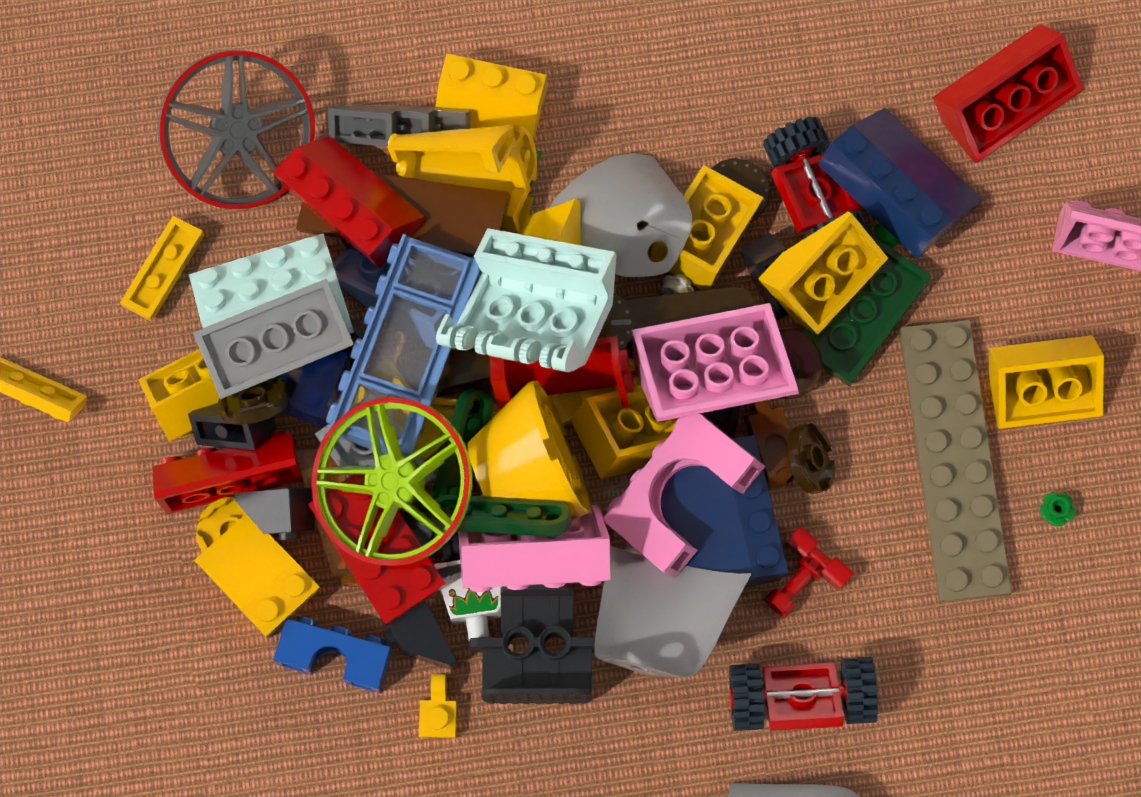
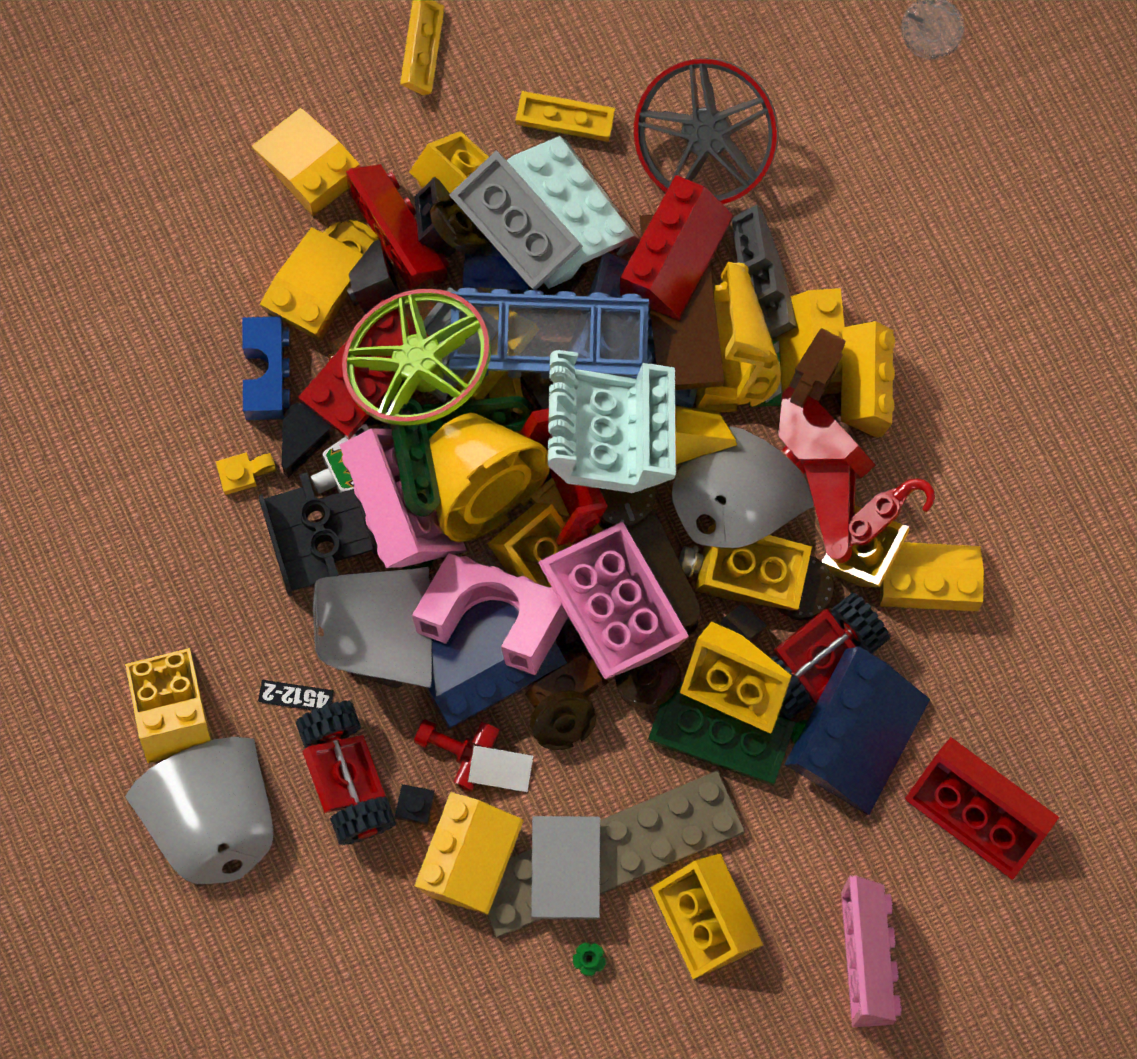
camera: 70 degrees right, 0 degrees up
(115, 544) = (306, 160): none -> yellow slope
(532, 92) = (816, 367): none -> reddish brown piece
(550, 53) = (868, 377): none -> yellow slope
(623, 115) = (832, 466): none -> red slope
(697, 726) = (294, 695): none -> black sticker
(724, 111) = (873, 560): none -> yellow slope
(762, 65) = (935, 578): none -> yellow slope
(839, 537) = (500, 768): none -> white sticker
(849, 636) = (414, 804): none -> black plate
(923, 592) = (468, 853): none -> yellow slope
(963, 501) = (565, 867): none -> light grey tile

